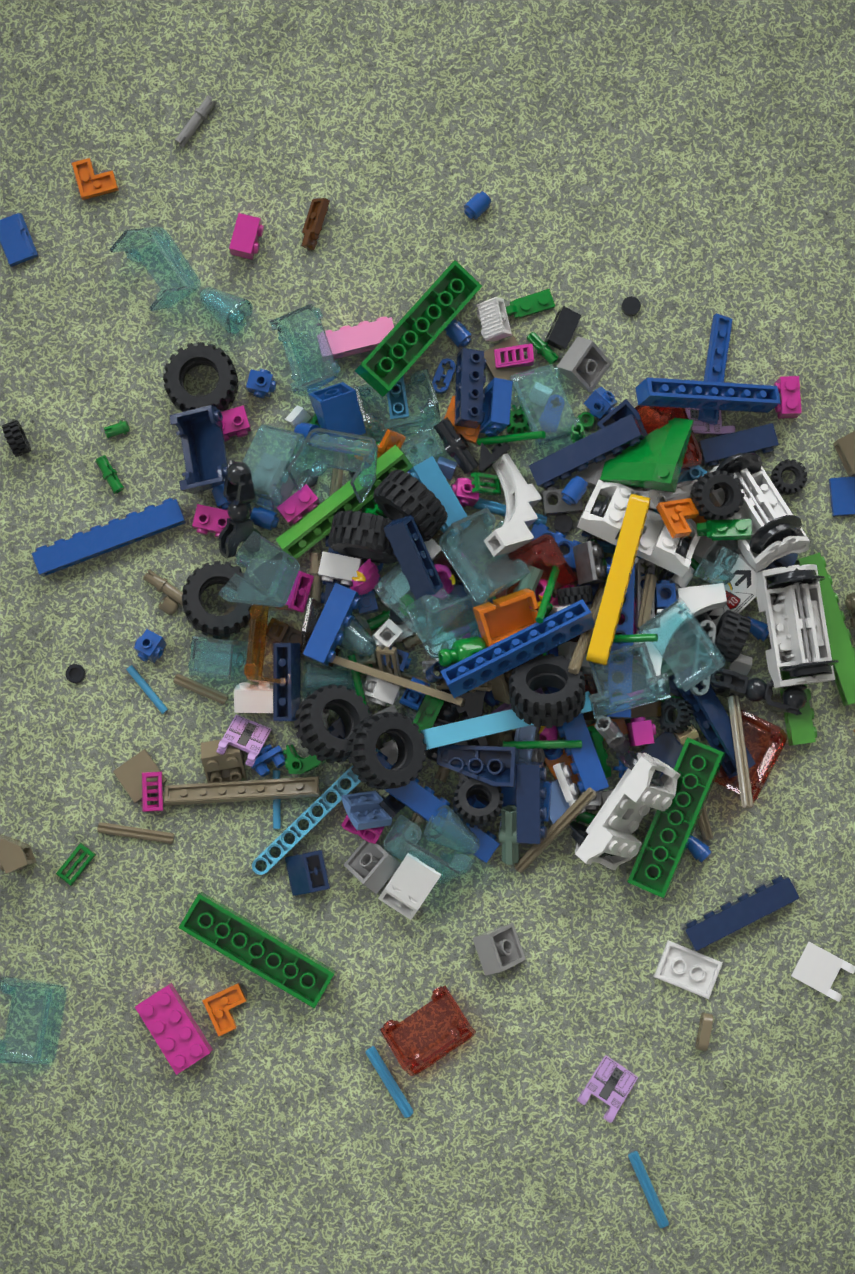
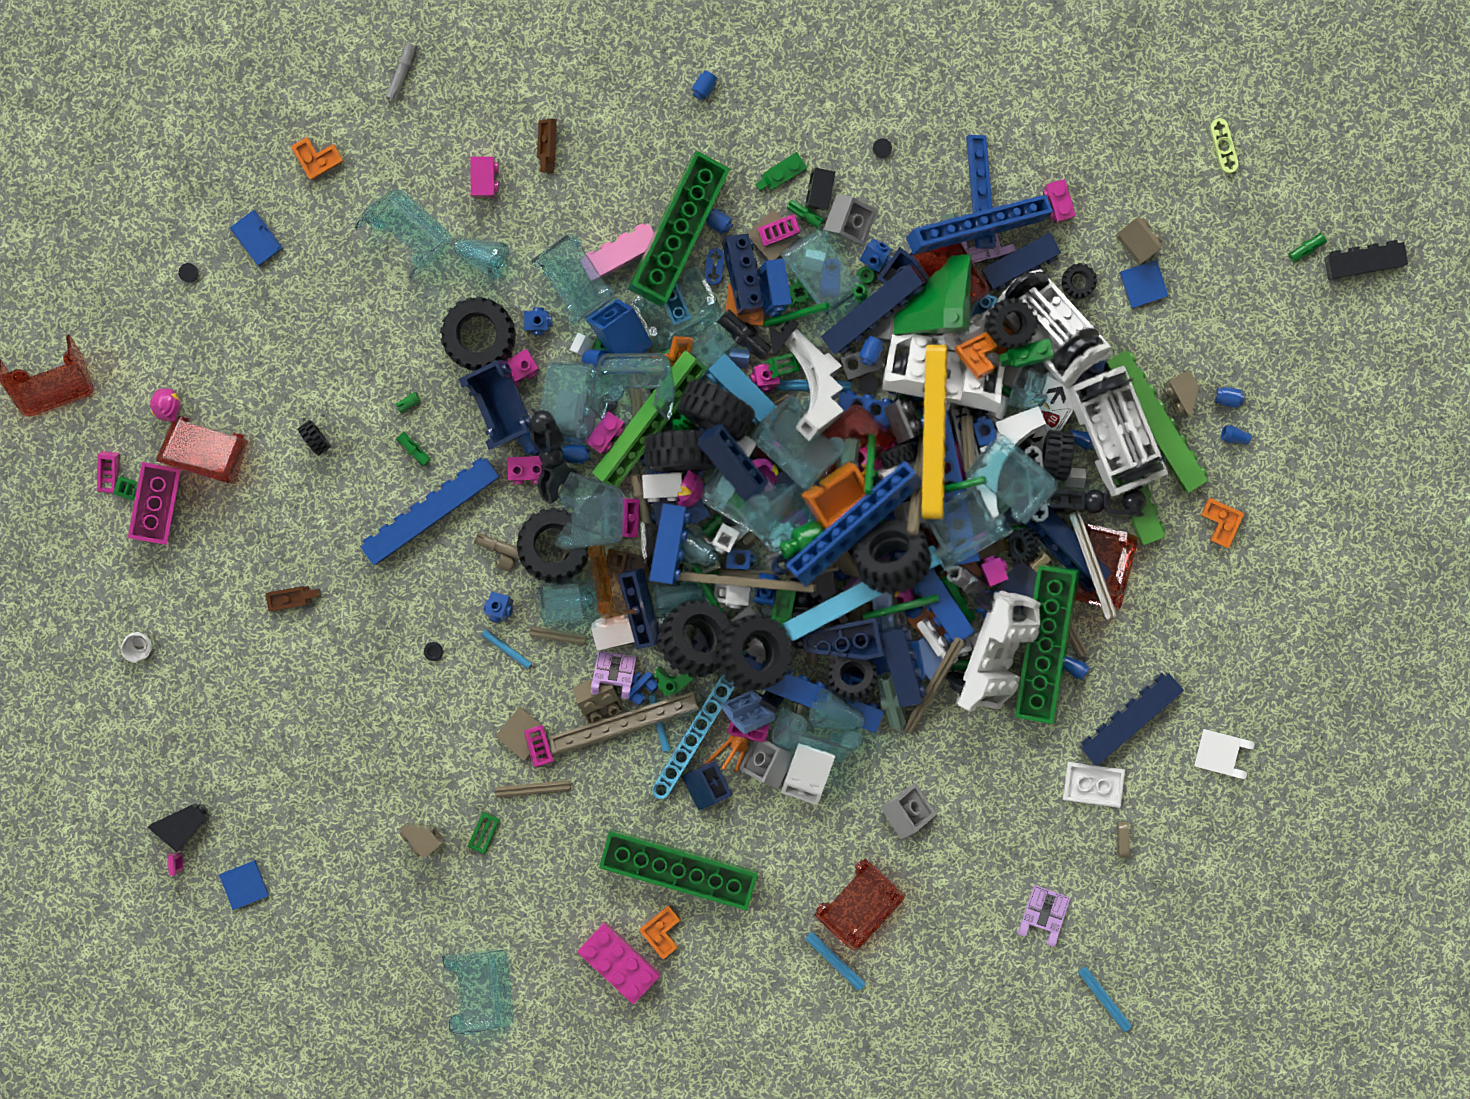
camera: 10 degrees left, 5 degrees up
(348, 839) = (738, 744): none -> orange plant
(387, 652) = (735, 555): dark tan tile -> none
(493, 319) = (749, 198): white brick -> none

